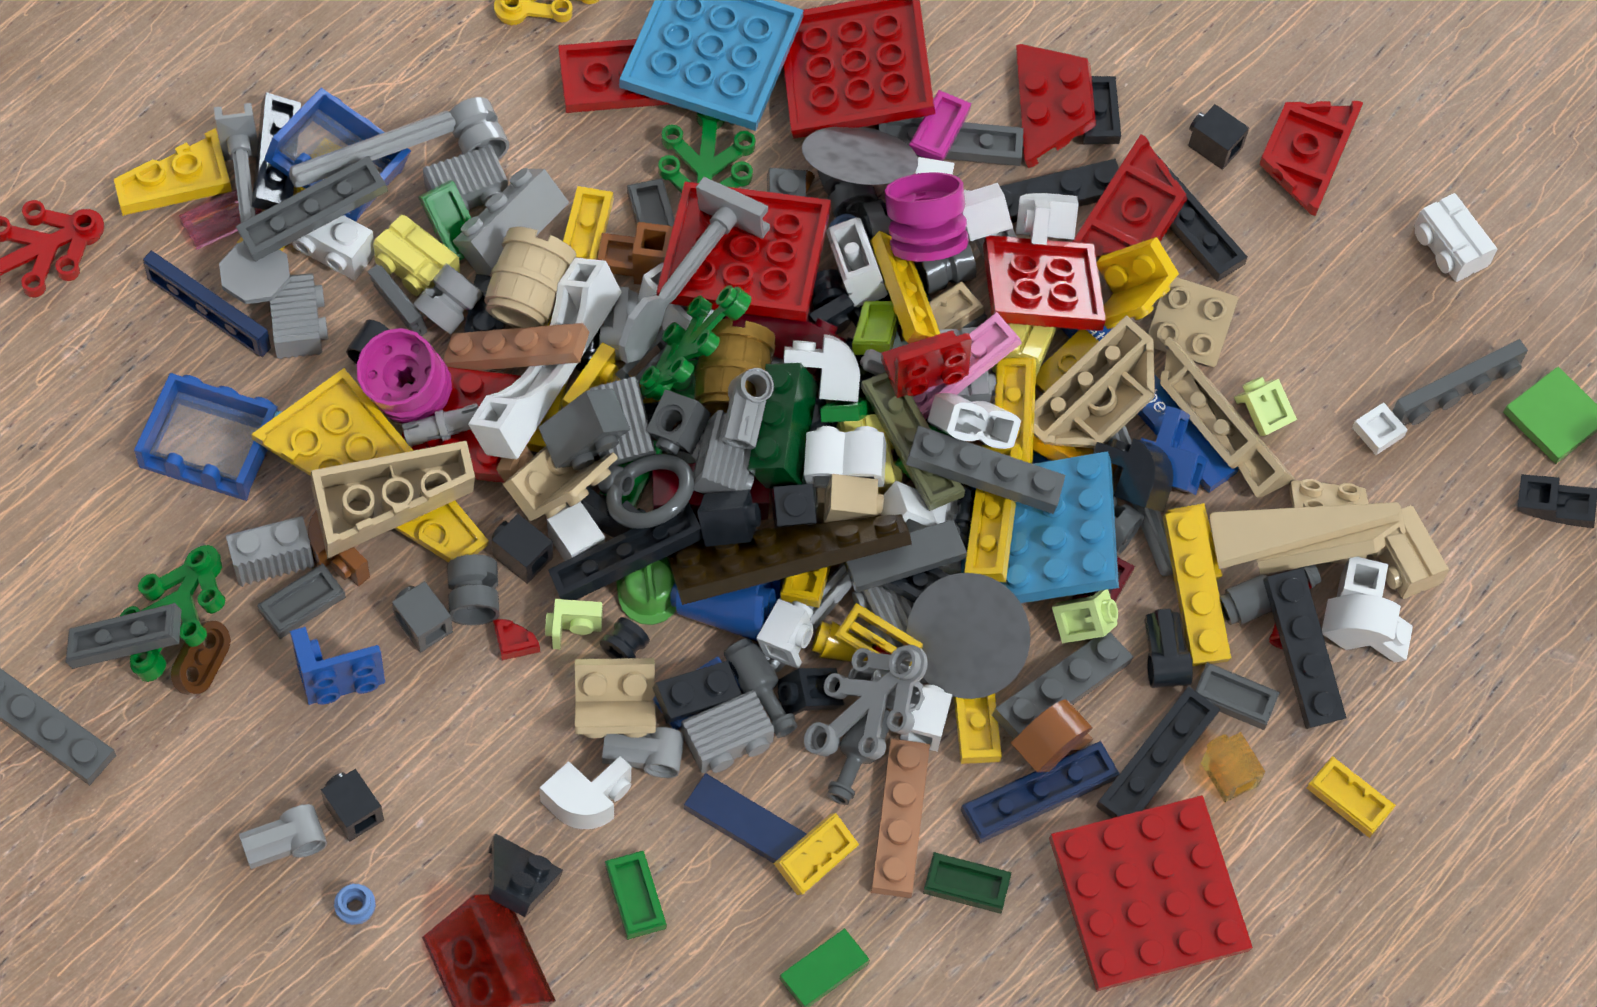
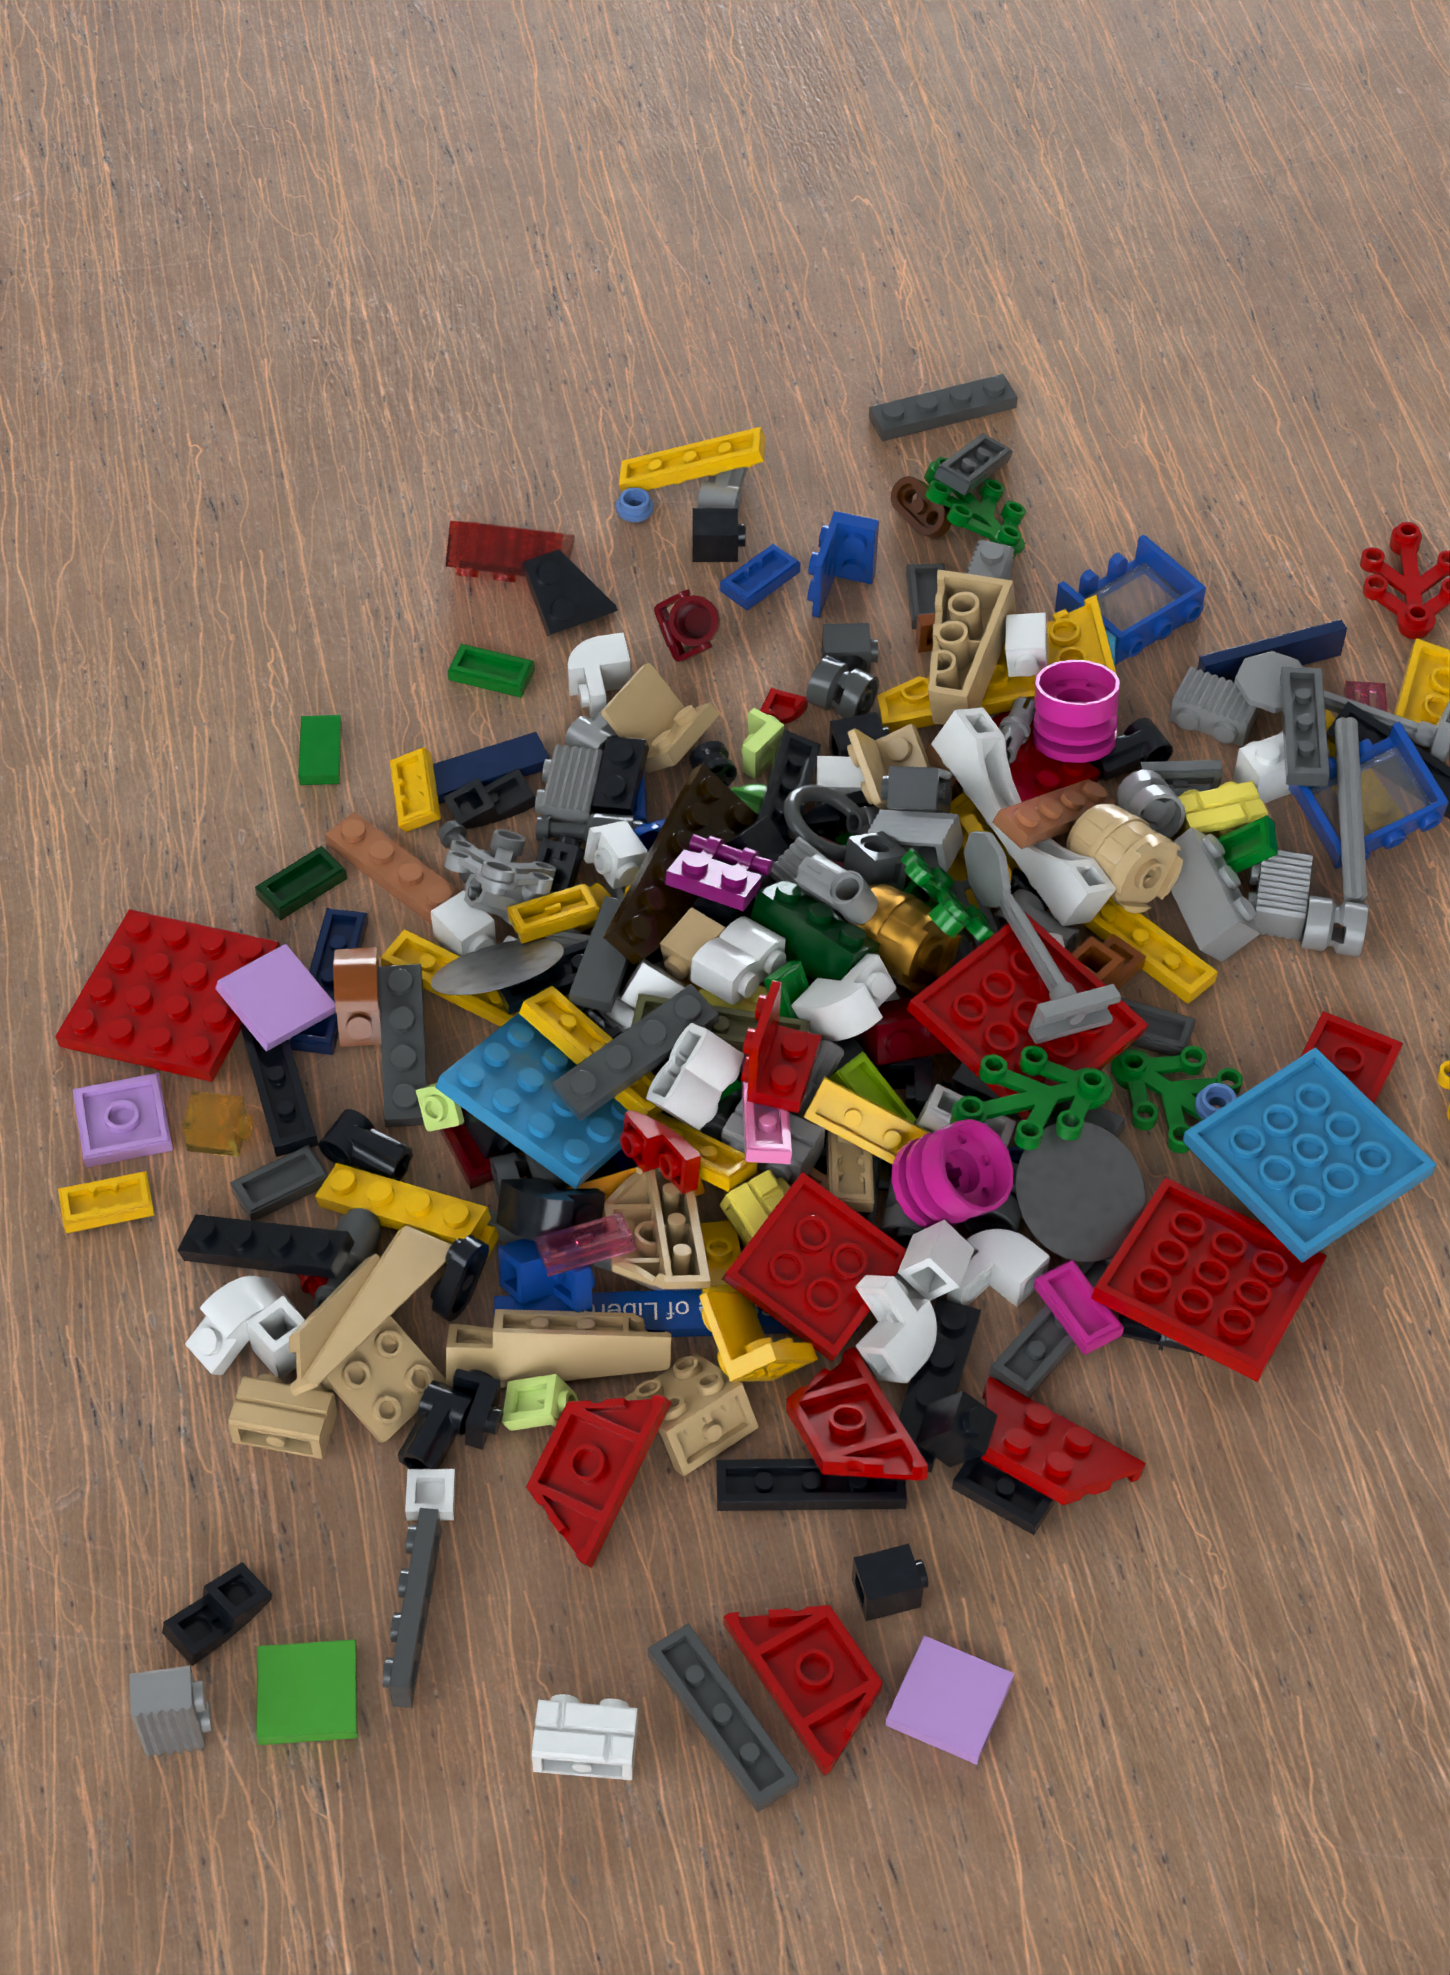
camera: 130 degrees right, 10 degrees down
(284, 866) = (694, 460): none -> yellow plate
(355, 442) = (1026, 644): none -> white brick
(375, 741) = (760, 576): none -> blue plate
(483, 741) = (690, 622): none -> dark red piece
(708, 120) = (1213, 1094): none -> medium blue plate
(783, 796) = (497, 801): none -> black slope
(800, 497) = (724, 883): none -> magenta plate
(824, 195) = (1086, 1087): none -> green plant
(1041, 427) = (658, 1146): none -> red slope
(1092, 142) = (956, 1429): none -> black brick
(1105, 791) = (275, 997): none -> lavender tile
(1180, 437) = (585, 1244): none -> clear pink tile
(1223, 495) = (455, 1289): none -> black plate
(1258, 71) = (950, 1699): none -> lavender tile
(1275, 847) = (122, 1120): none -> lavender tile
(1285, 337) = (593, 1466): none -> red wing
(1298, 434) = (484, 1413): none -> black bracket
(1323, 457) = (439, 1421): none -> black piece
(1375, 178) = (723, 1717): none -> dark grey plate

